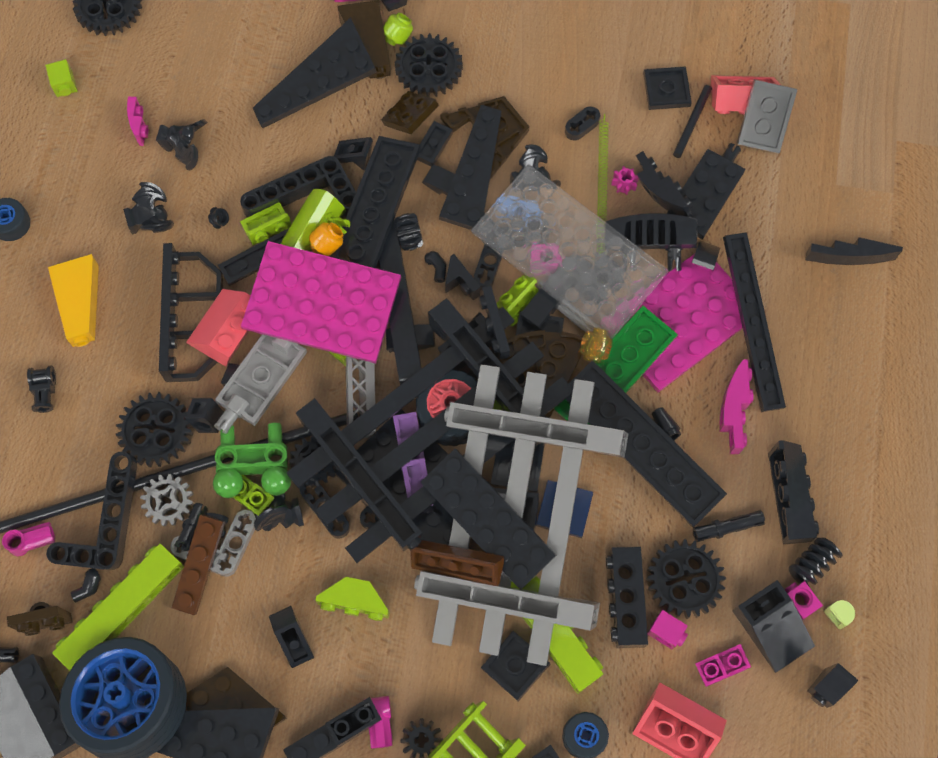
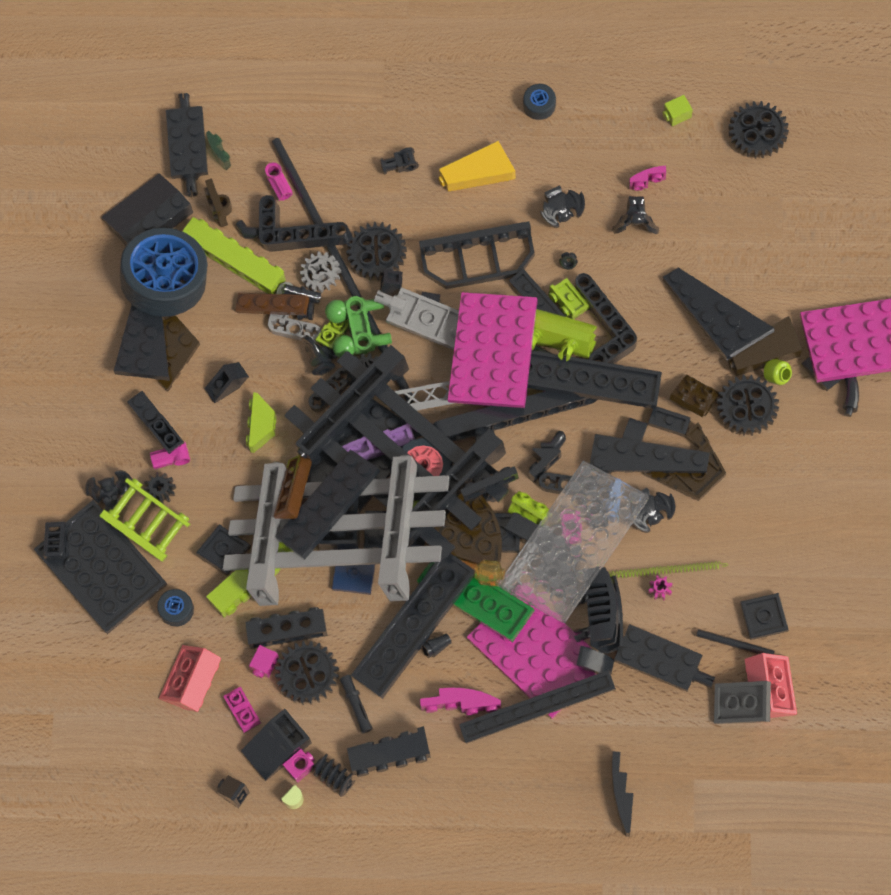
camera: 90 degrees right, 0 degrees up
(220, 329) = (468, 279): coral slope -> none
(326, 238) = (548, 343): light orange head -> none
(354, 151) = (647, 355): black slope -> none
(409, 231) = (577, 412): black gear -> none
(584, 126) = (711, 549): black beam -> none
(662, 189) = (647, 617): black slope -> none

